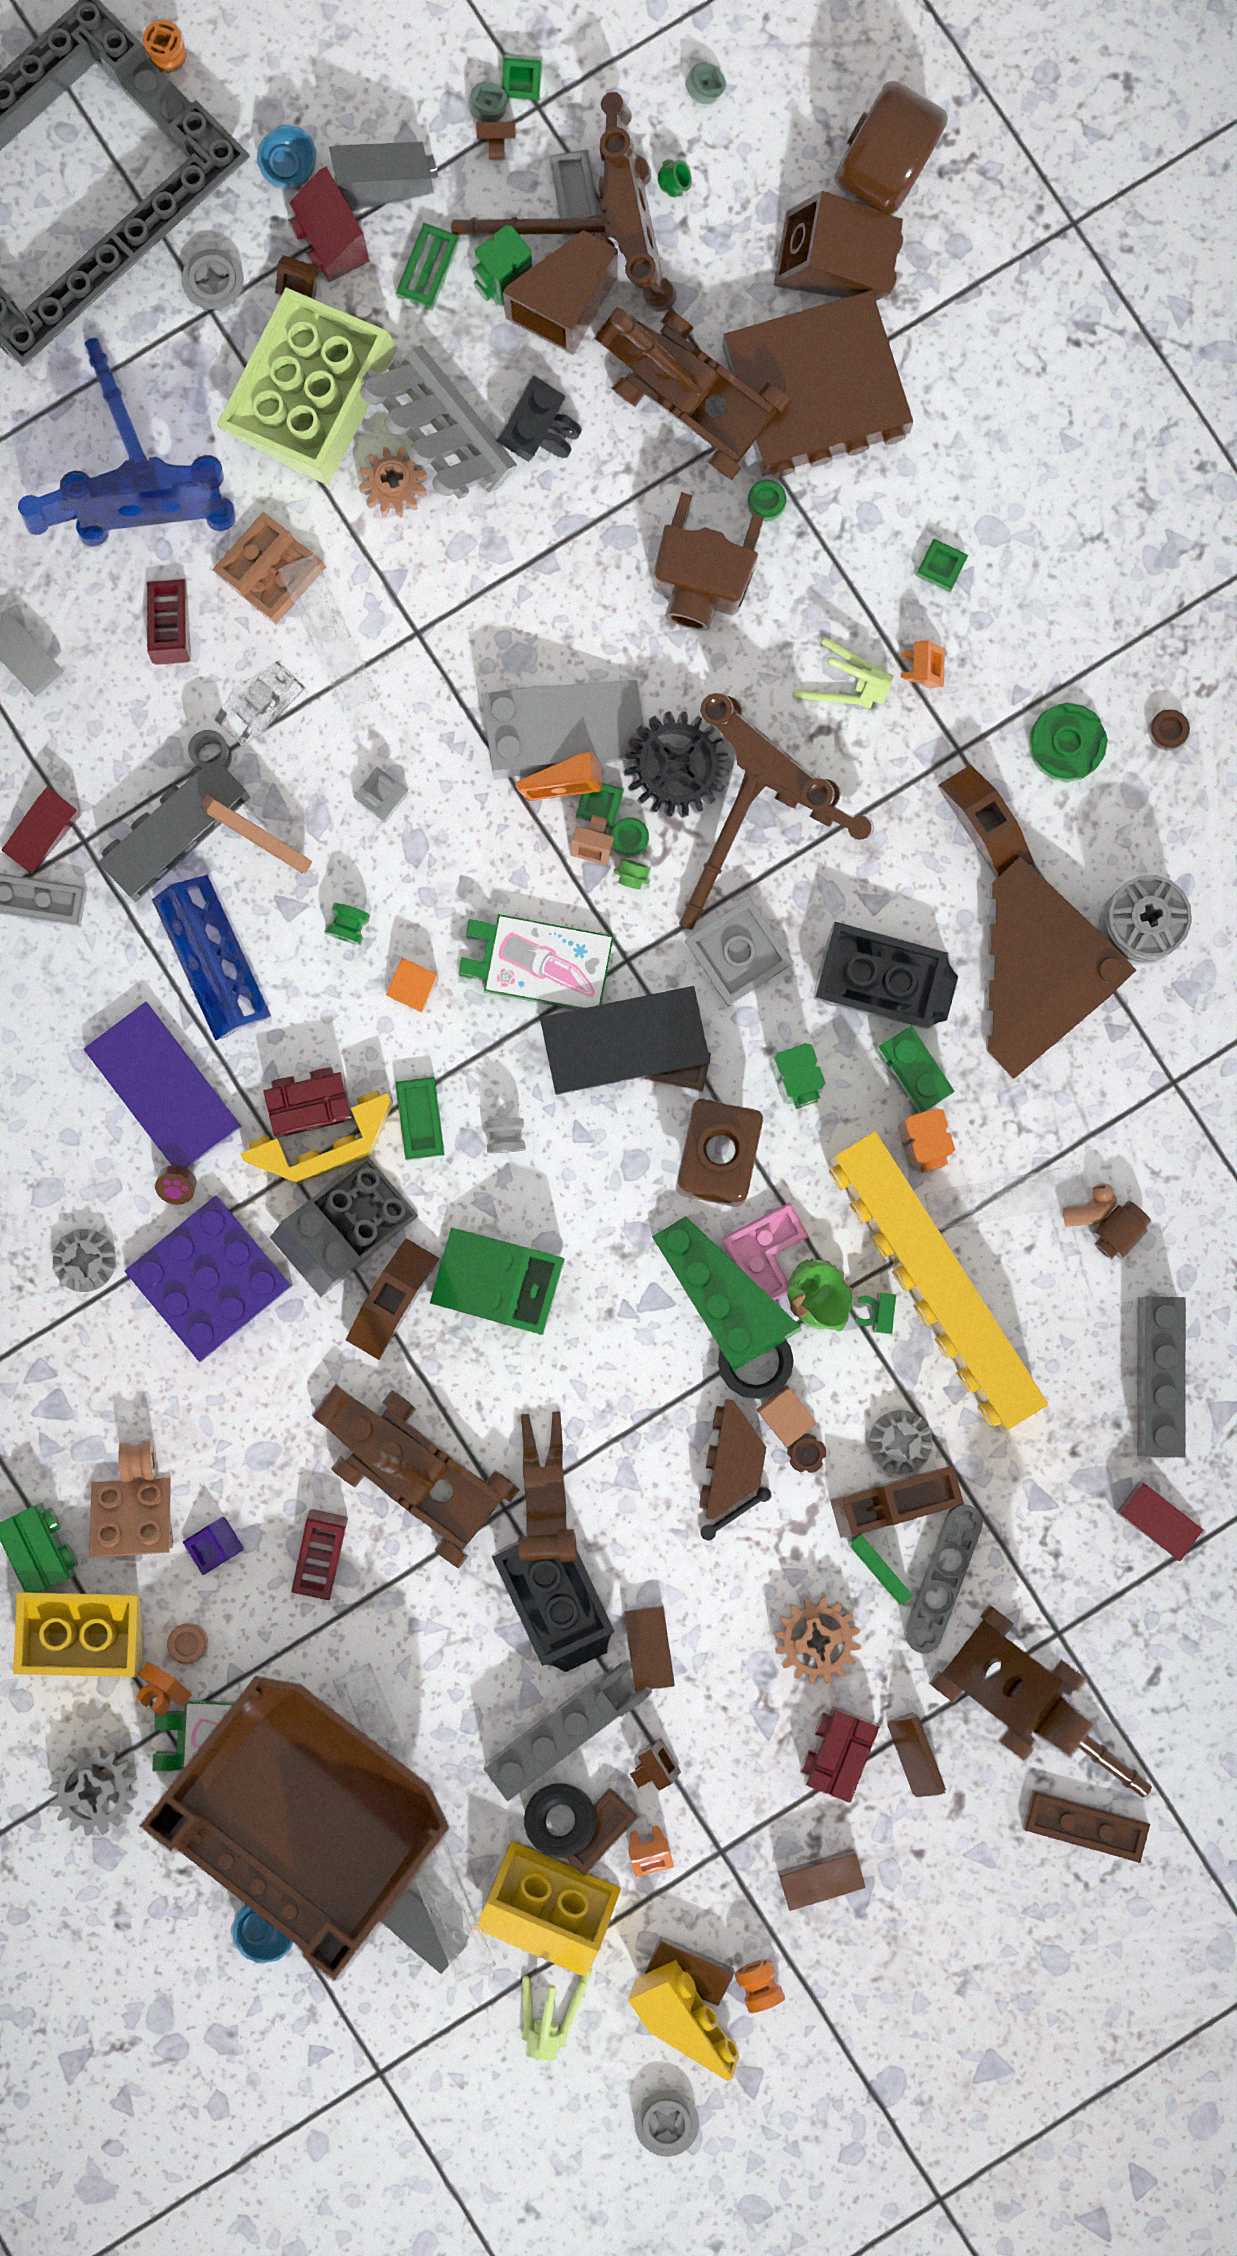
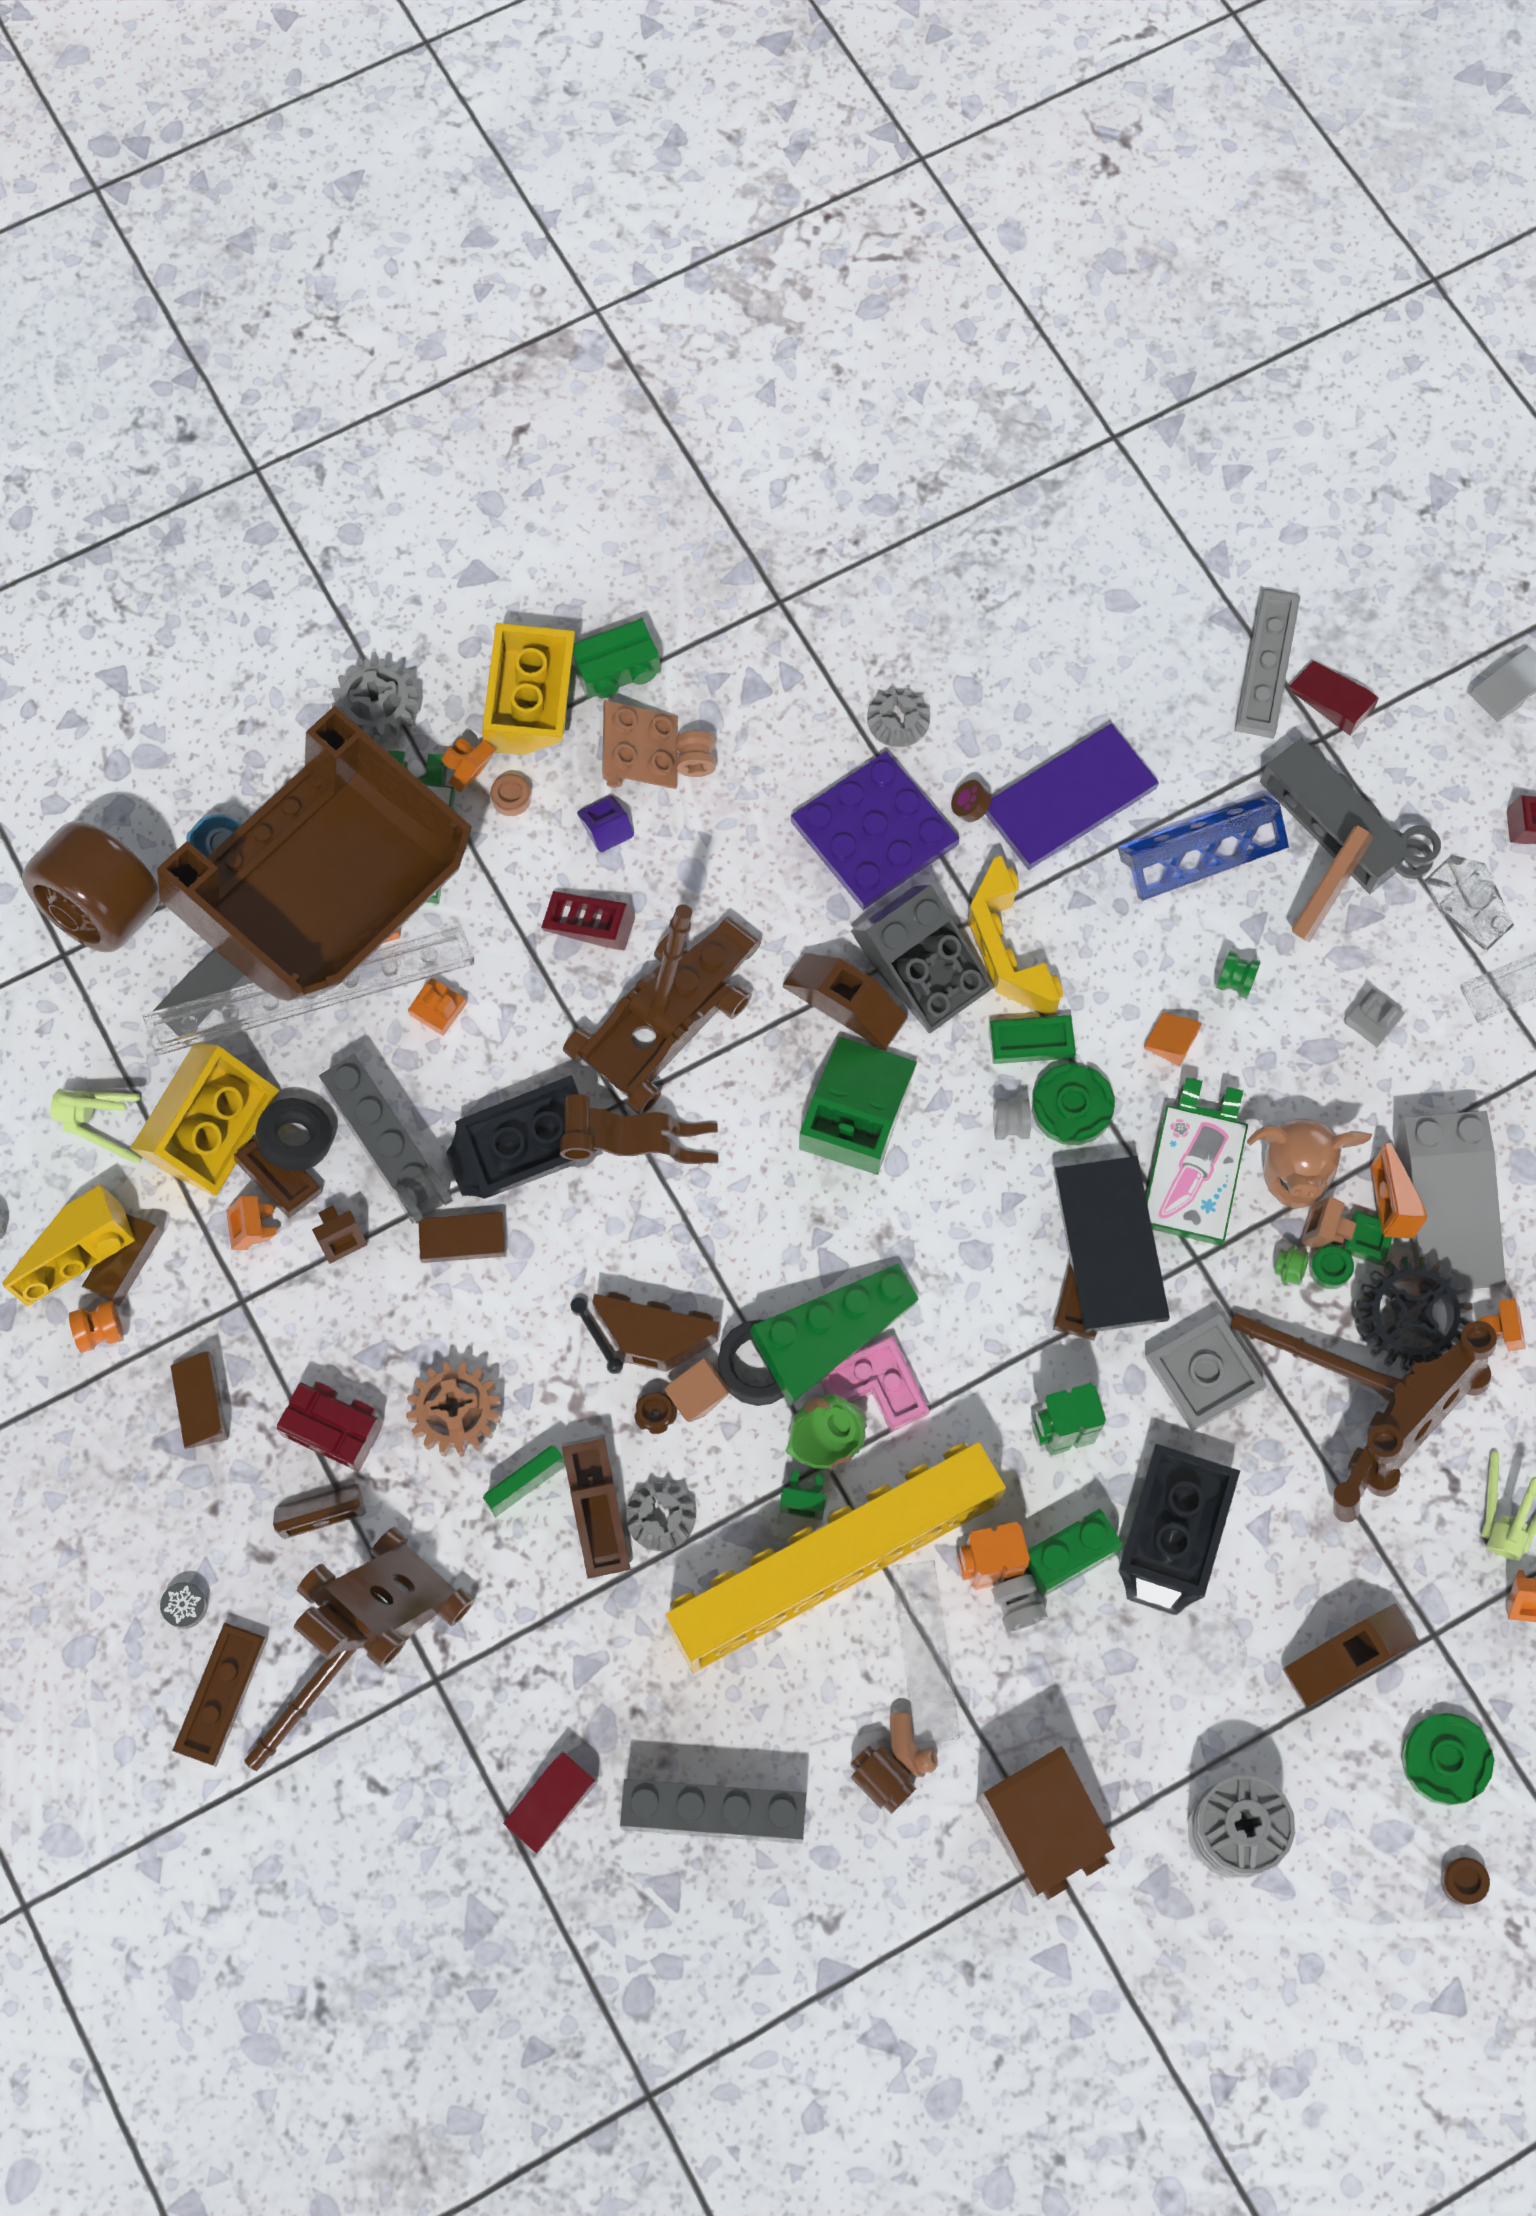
camera: 95 degrees right, 15 degrees down
(308, 1103) = (1050, 926): dark red brick -> none
(324, 2051) = (91, 886): none -> reddish brown wheel
(417, 1695) = (437, 1006): none -> orange tile
(483, 1078) = (1073, 1104): none -> green tile
(533, 863) = (1303, 1156): none -> nougat piece
(679, 679) = (1508, 1324): none -> orange tile
(713, 1181) = (965, 1339): reddish brown piece -> none
(937, 1576) = (505, 1557): dark grey beam -> none
(965, 1110) = (1025, 1611): none -> light grey wheel
(1010, 1869) = (183, 1605): none -> dark grey tile
(1046, 968) = (1186, 1708): reddish brown slope -> none
(1152, 1087) = (1047, 1824): none -> reddish brown slope

